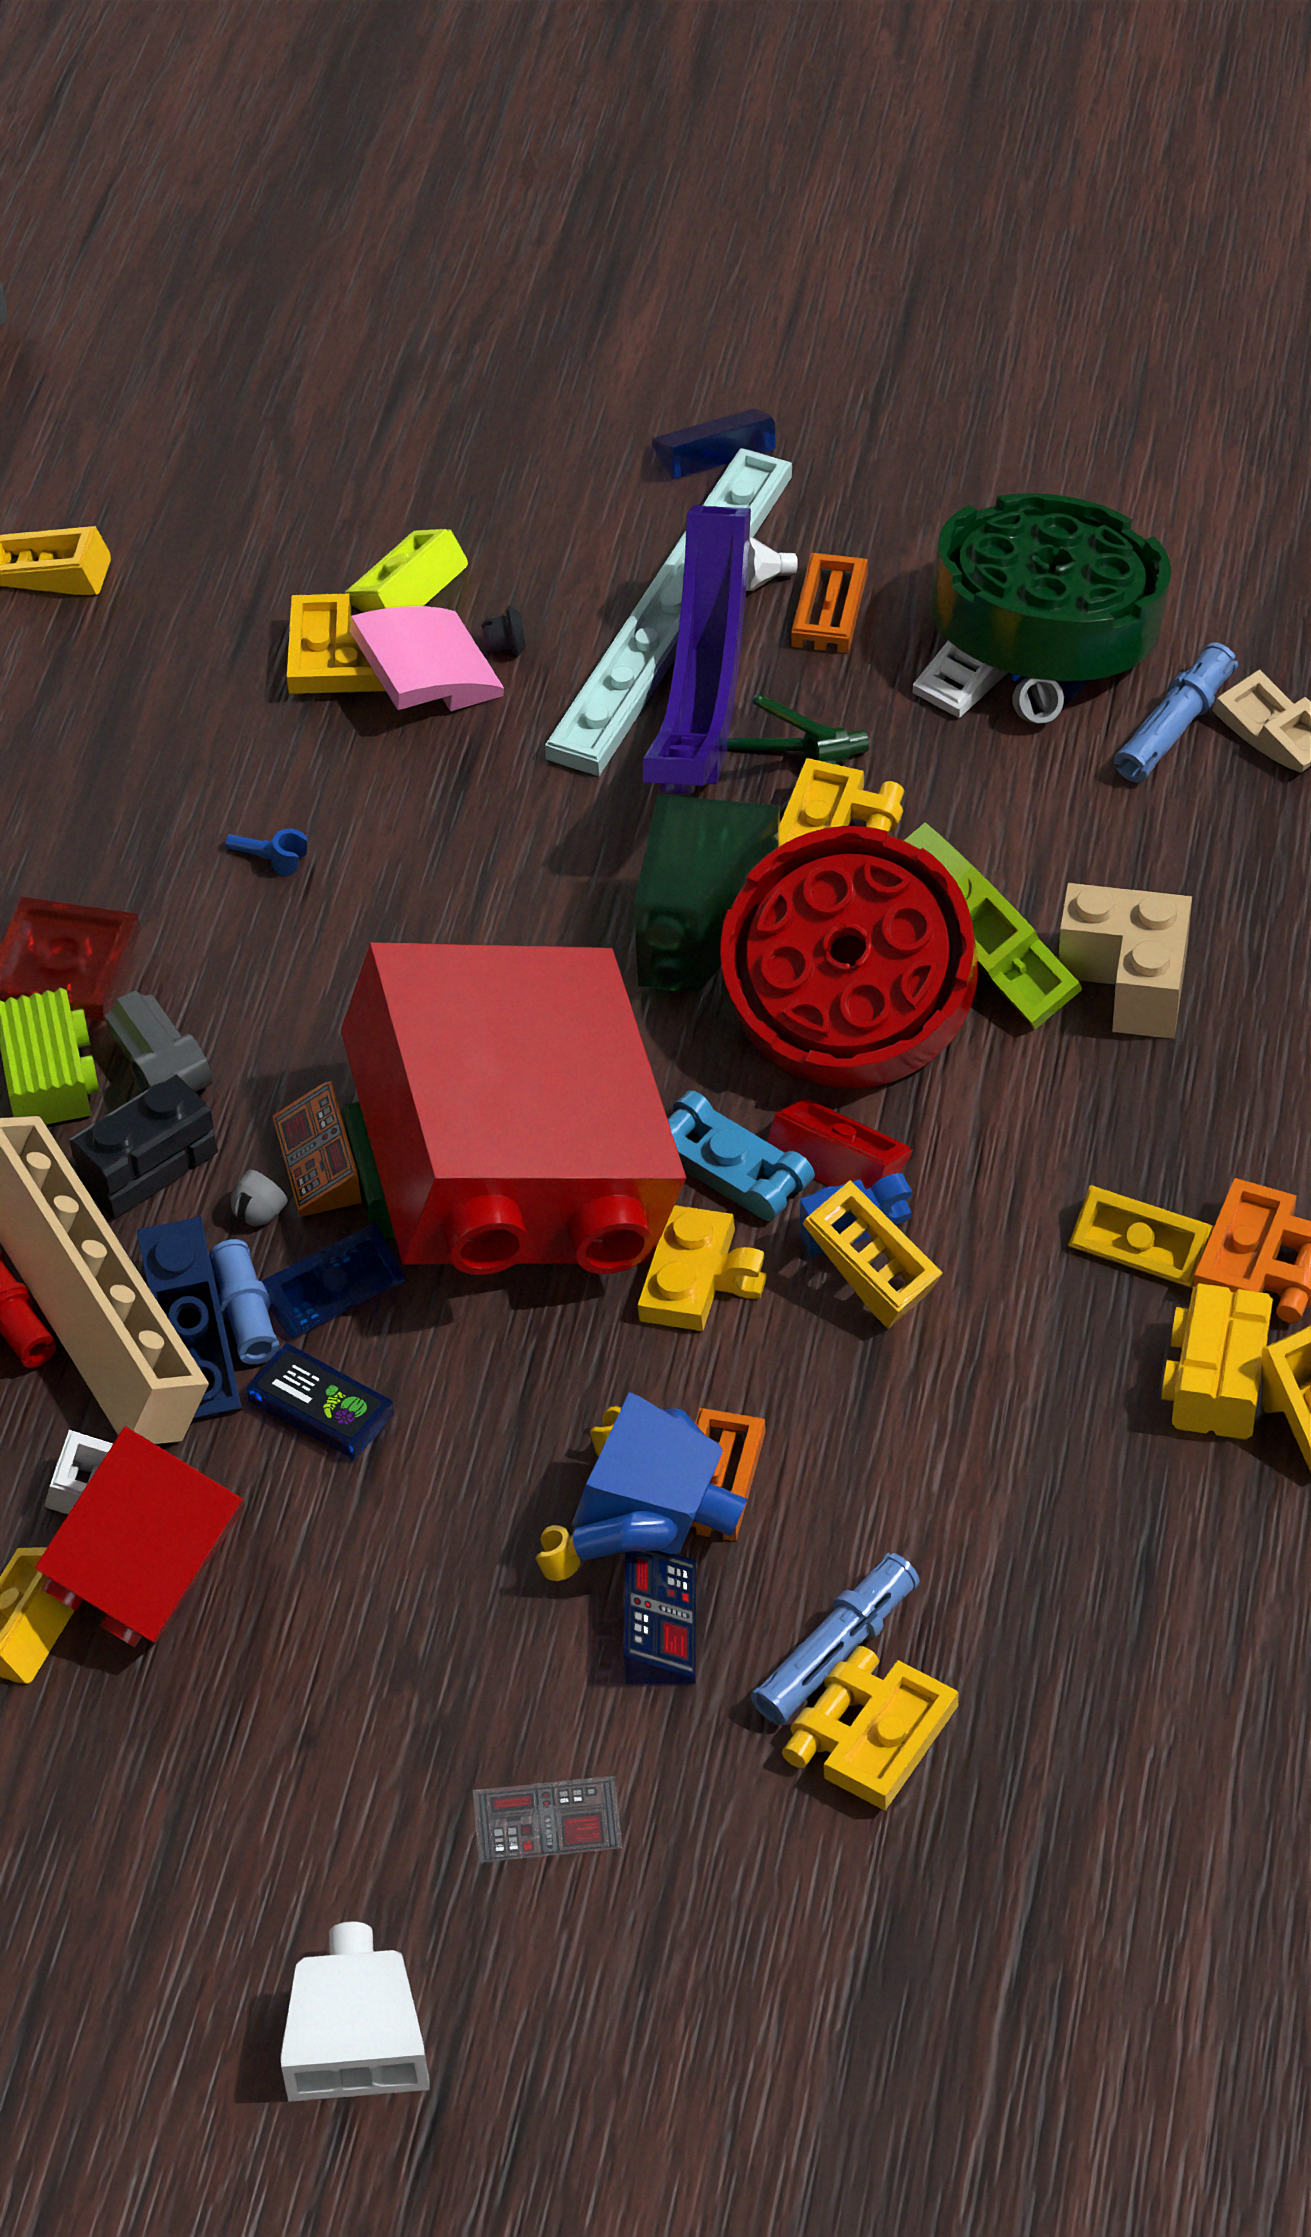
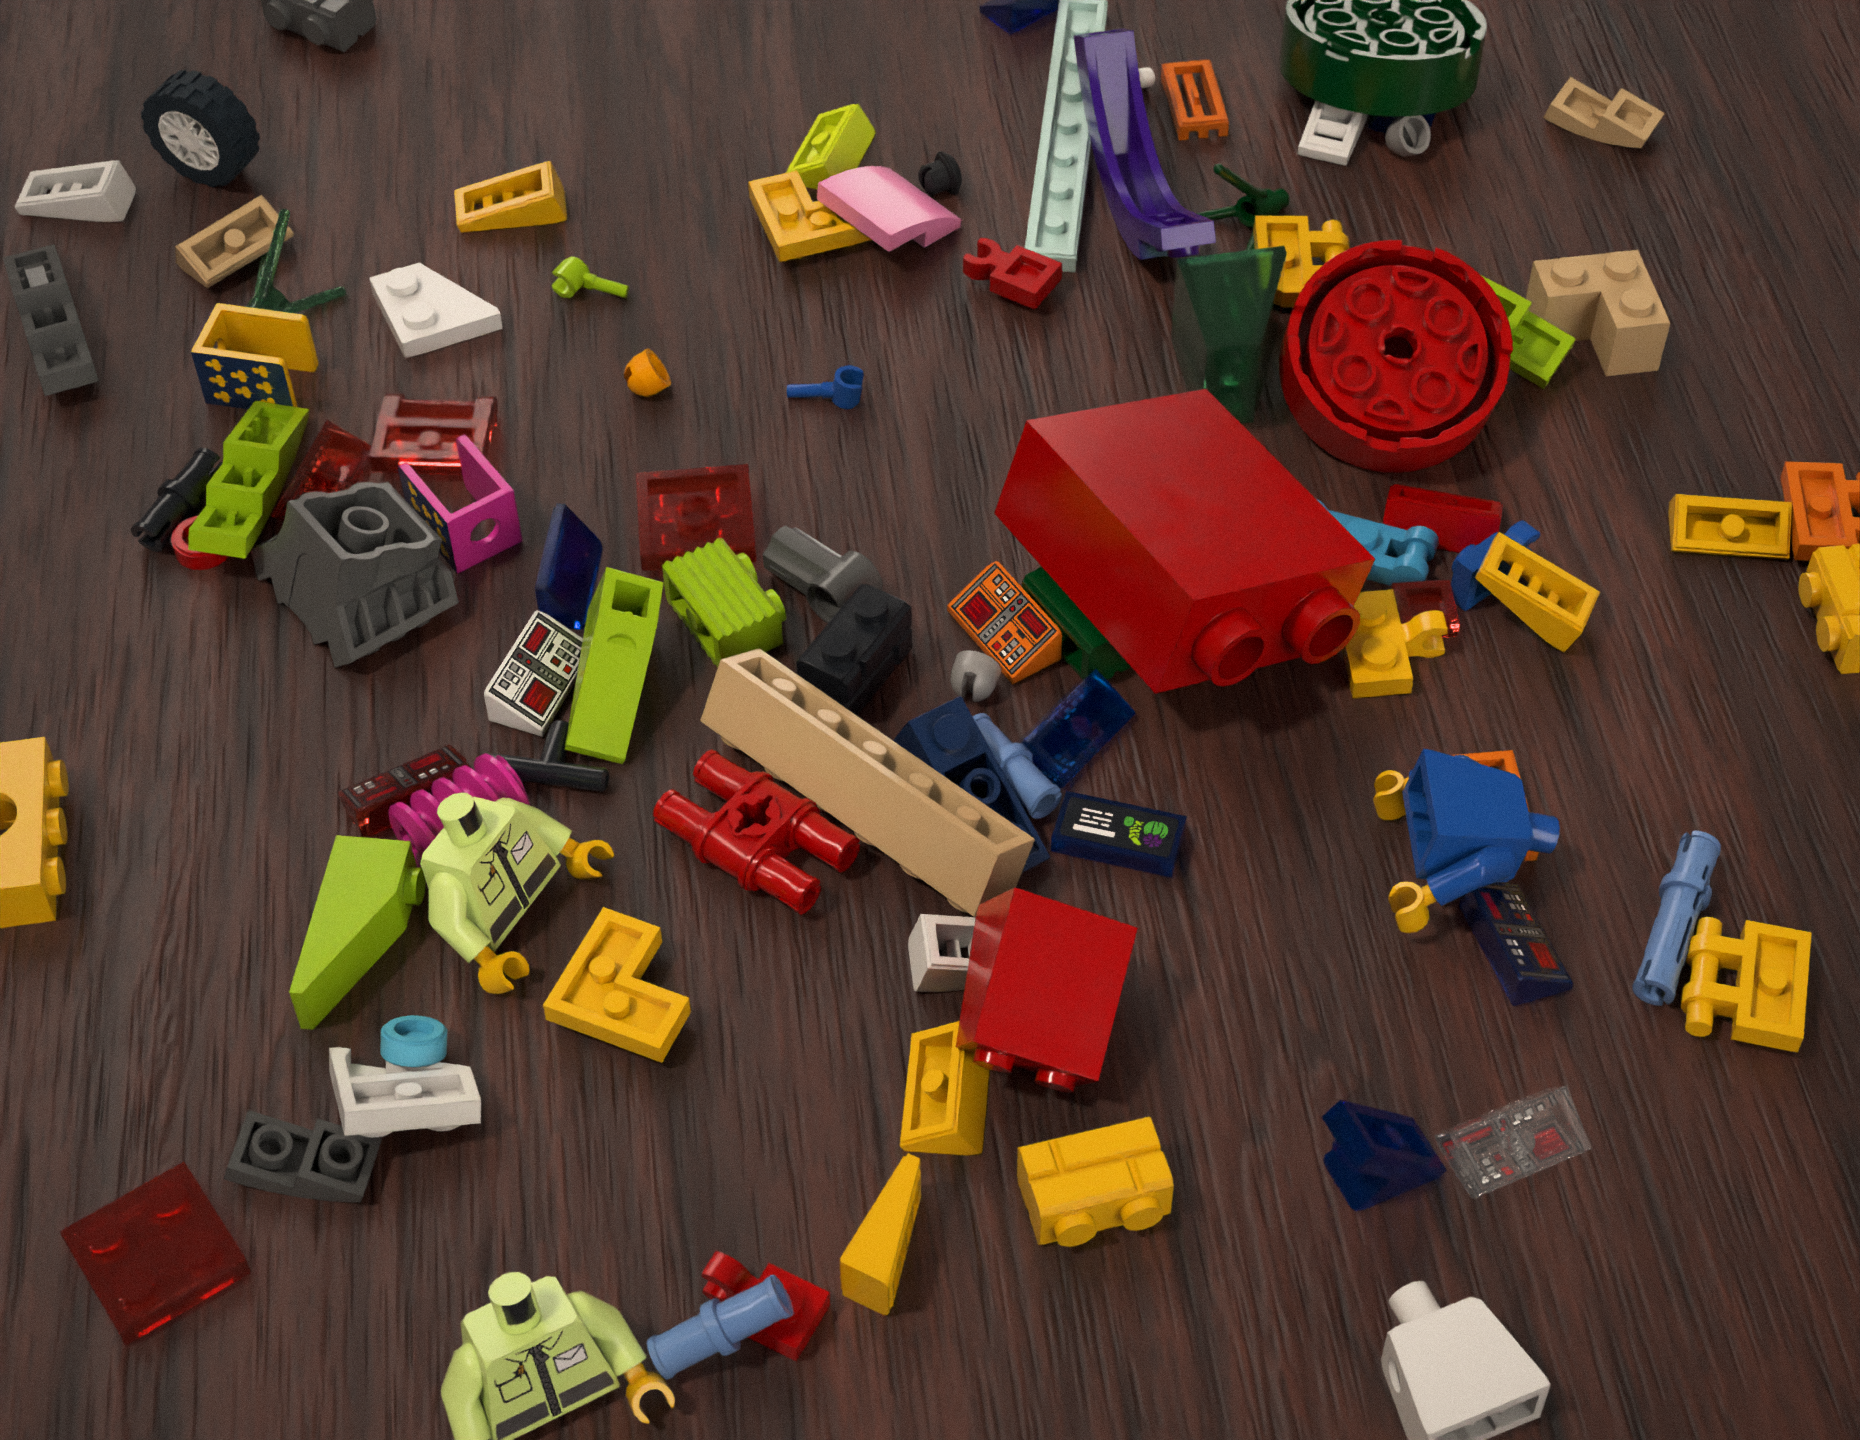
camera: 20 degrees left, 0 degrees up
(68, 659) = (575, 274): none -> lime hand
(91, 789) = (646, 374): none -> light orange hinge
(108, 1740) = (1095, 1182): none -> yellow brick
(397, 1788) = (1377, 1154): none -> clear blue slope
(526, 768) = (1014, 275): none -> red plate
(770, 1233) = (1425, 596): none -> clear red tile
(1189, 695) = (1524, 110): medium blue pin -> none

